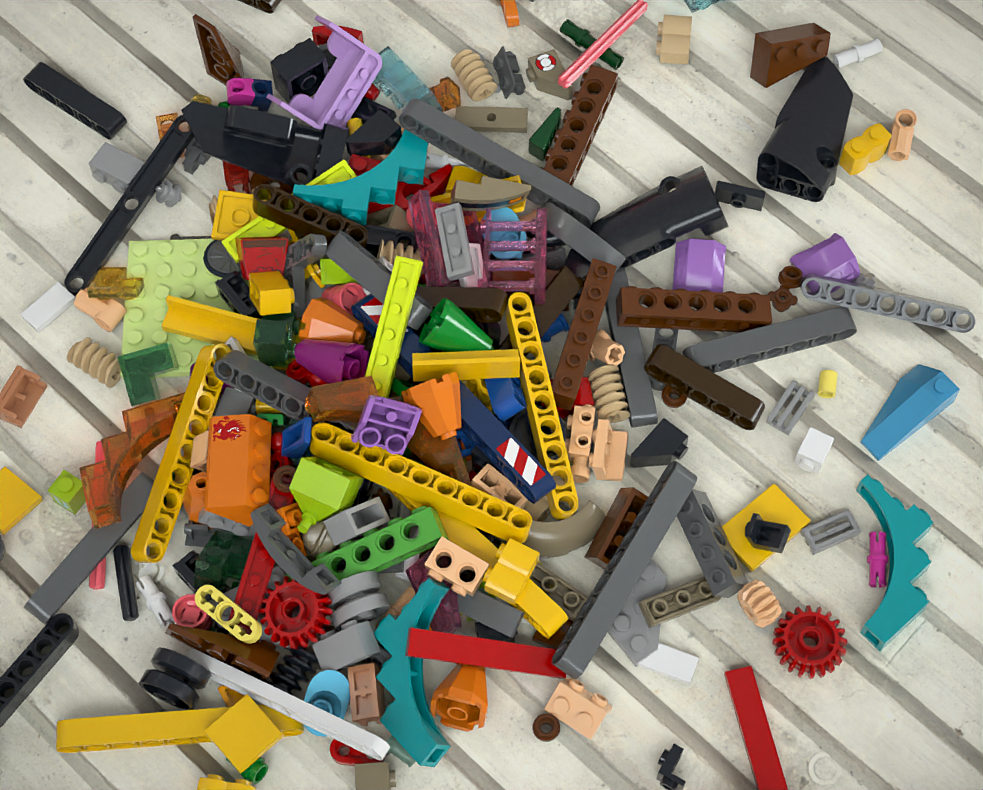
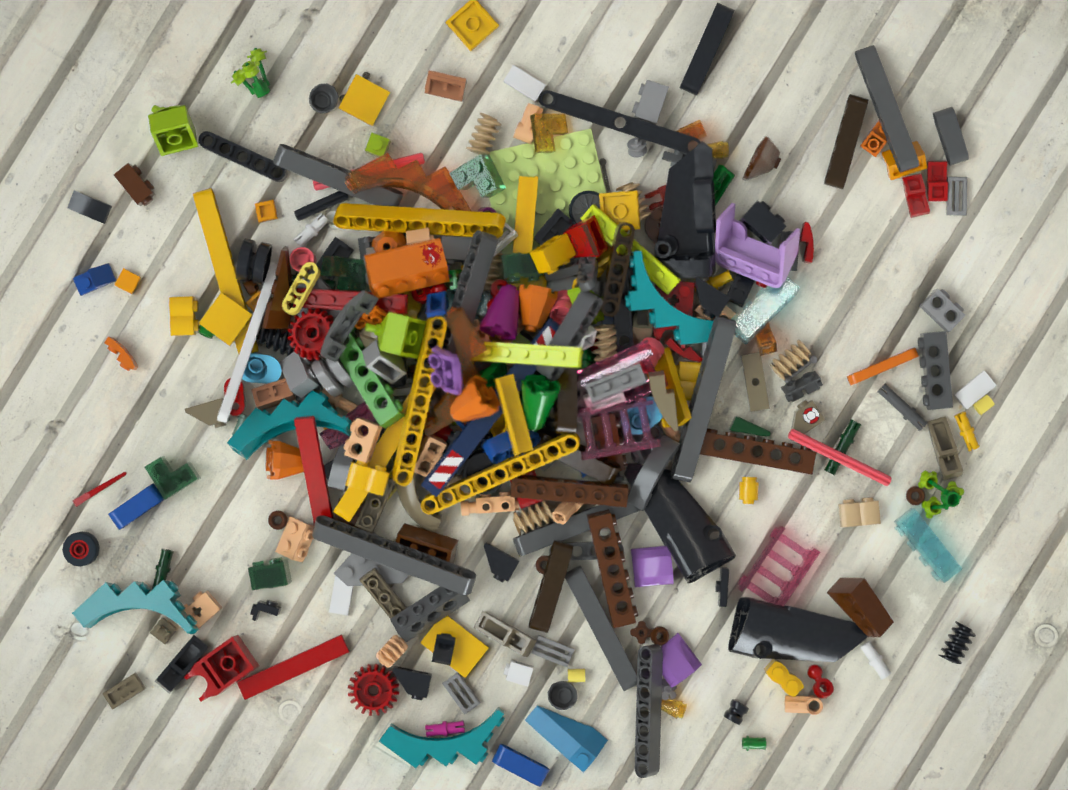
camera: 75 degrees right, 25 degrees up
(112, 658) = (266, 211): none -> light orange tile
(210, 698) = (250, 287): none -> reddish brown hinge
(249, 92) = (737, 187): leg -> none
(279, 473) = (396, 305): reddish brown plate -> none
(609, 452) = (487, 526): light nougat bracket -> none
(622, 743) = (270, 575): none -> clear green brick
(623, 148) = (748, 490): none -> yellow brick
(735, 112) = (798, 571): none -> clear pink fence
(758, 459) = (505, 634): none -> dark tan slope
(807, 585) = (413, 681): none -> black slope
(852, 402) = (562, 695): none -> dark grey hair
(882, 112) = (815, 672): none -> red plate
(888, 275) = (674, 708): none -> clear yellow cone
(901, 209) = (737, 707): none -> black wheel
(939, 472) = (520, 765): none -> blue beam
(944, 195) = (753, 743): none -> green pin

